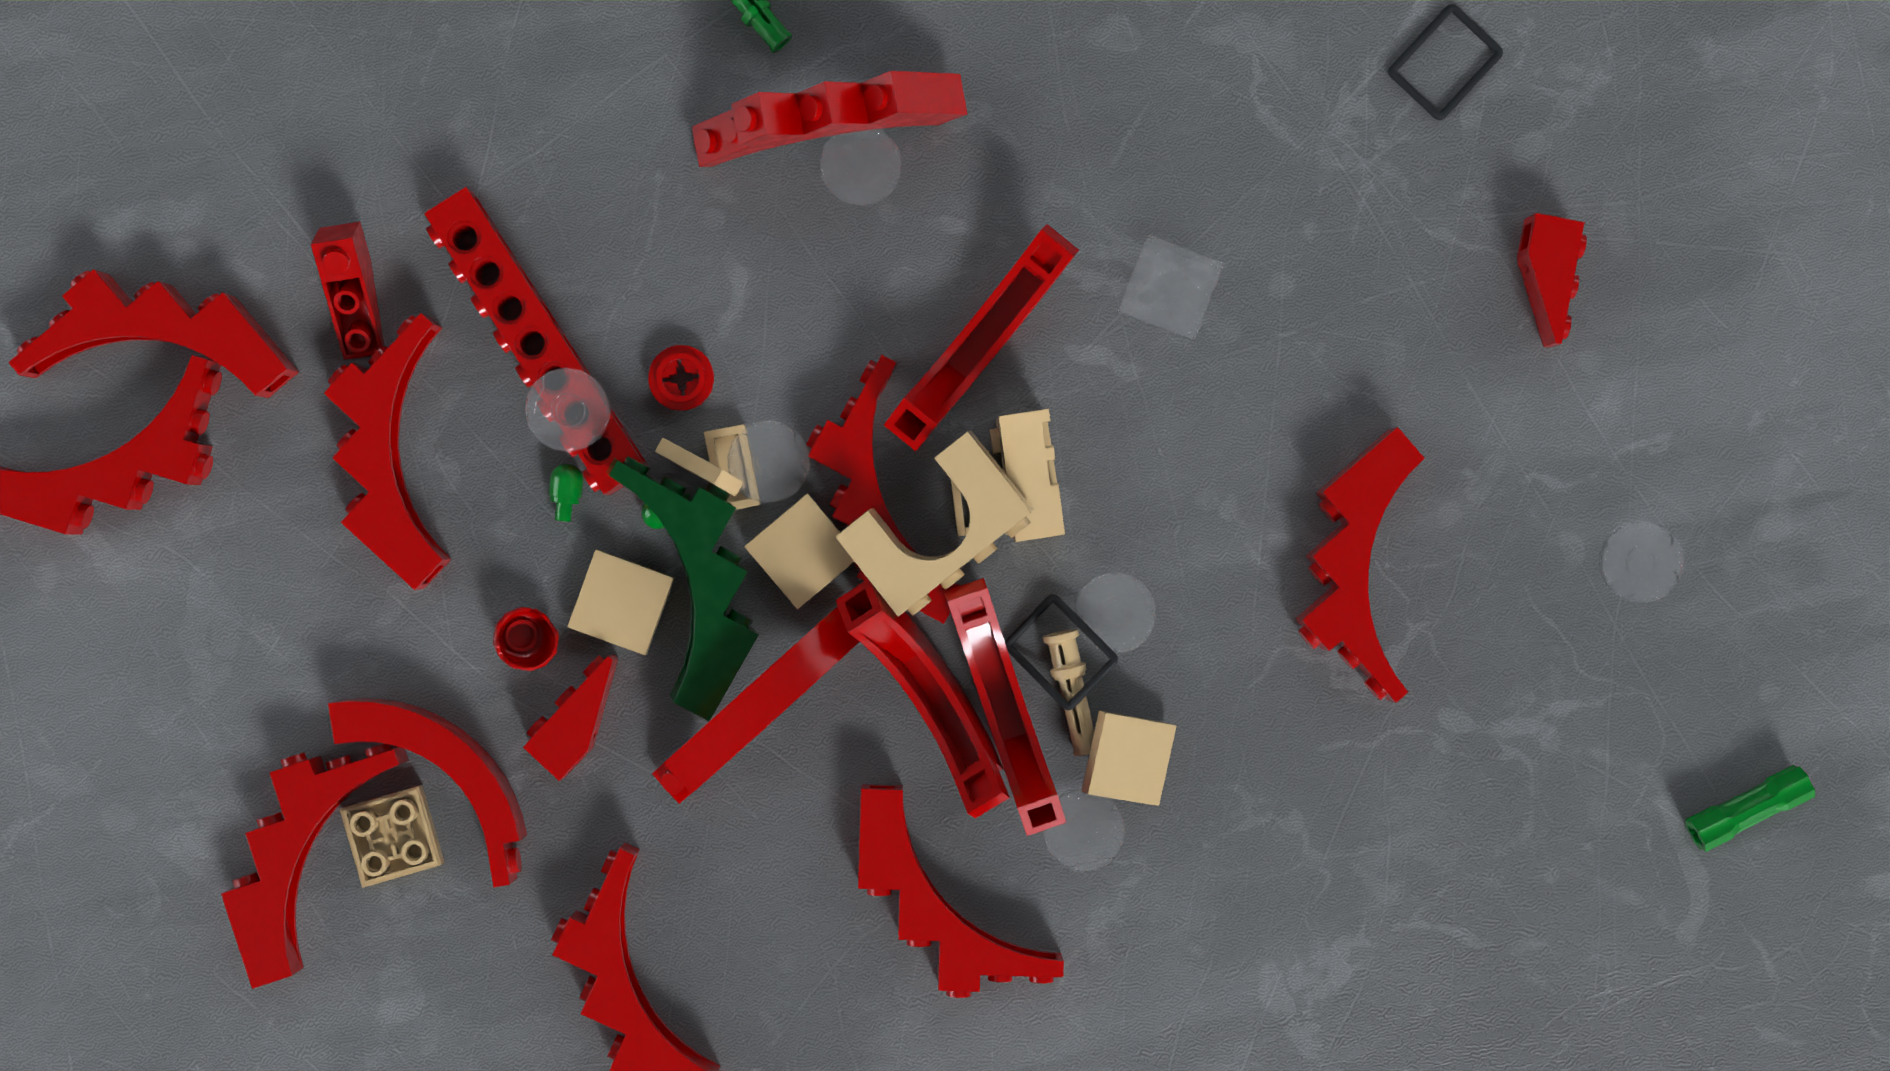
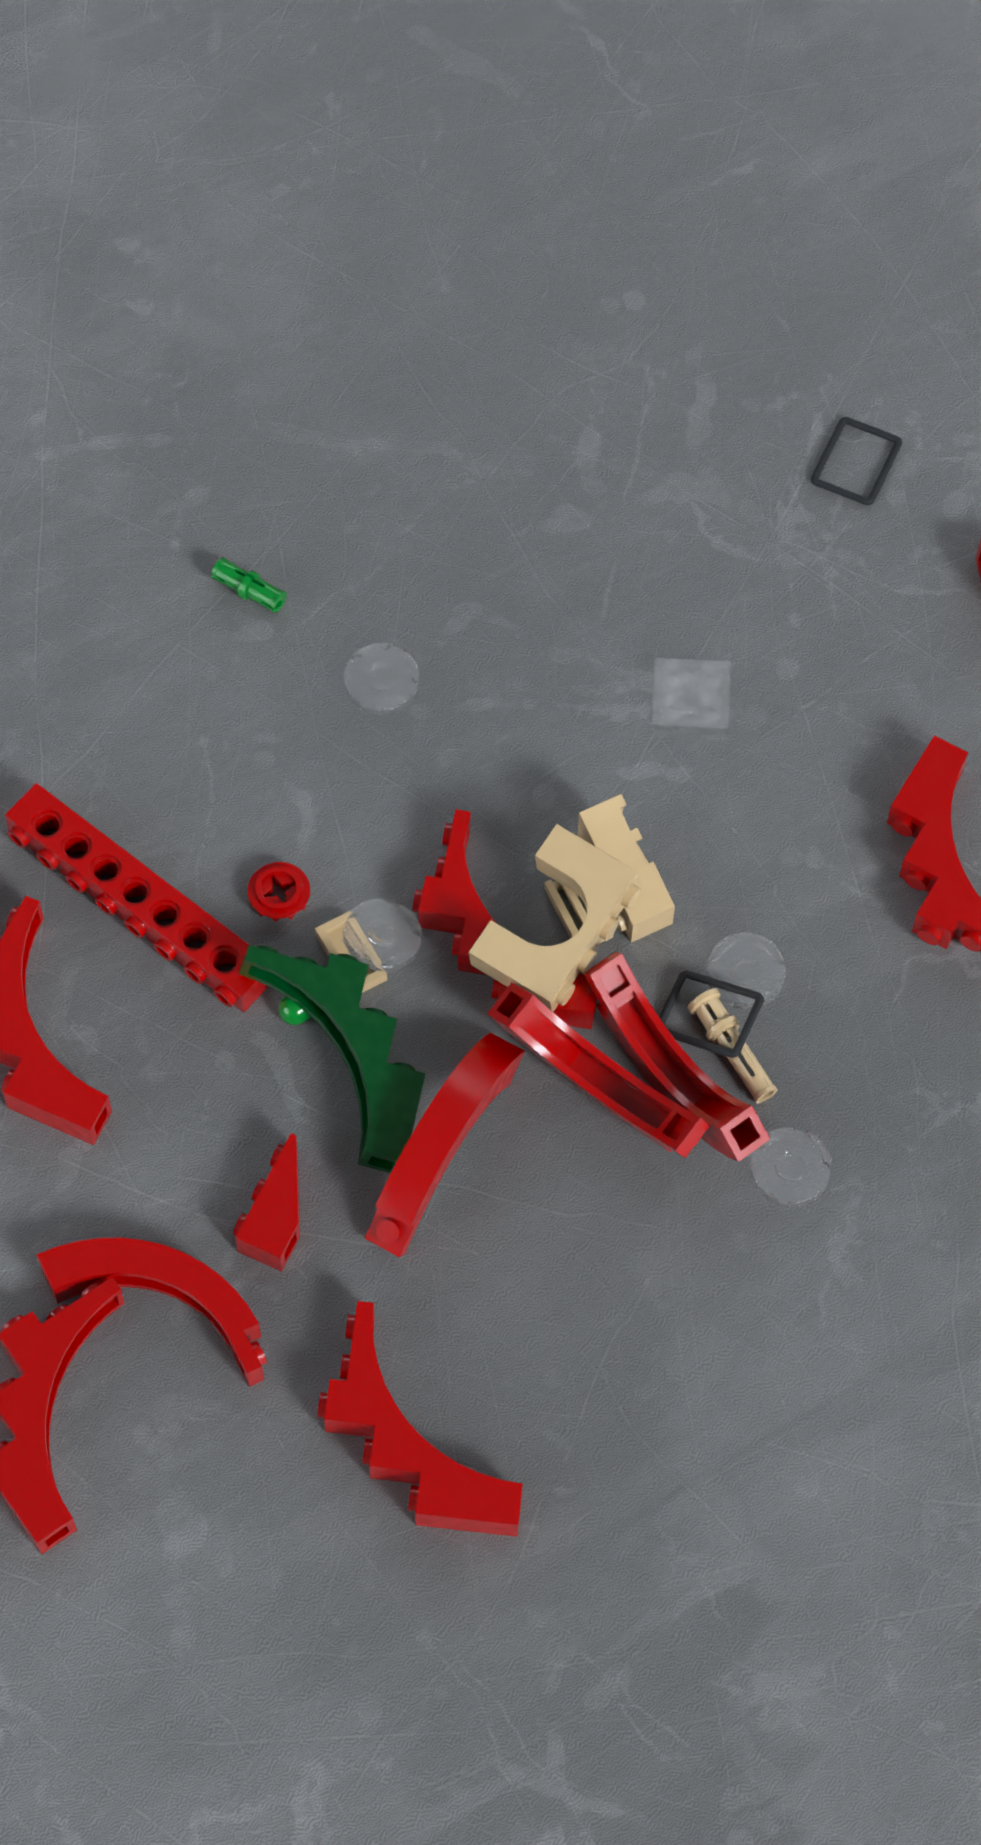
camera: 25 degrees left, 25 degrees down
(392, 836) = (130, 1374): tan tile -> none
(525, 639) = (206, 1149): red hair -> none
(565, 490) = (202, 1014): green cylinder -> none
(567, 409) = (187, 932): clear tile -> none
(621, 602) = (285, 1093): tan tile -> none
(699, 466) = (320, 945): tan tile -> none
(800, 551) = (440, 1000): tan tile -> none
(828, 110) = (343, 621): red arch -> none
(965, 950) = (669, 1281): red arch -> none
(981, 338) = (528, 805): red arch -> none
(1128, 758) = (807, 1082): tan tile -> none

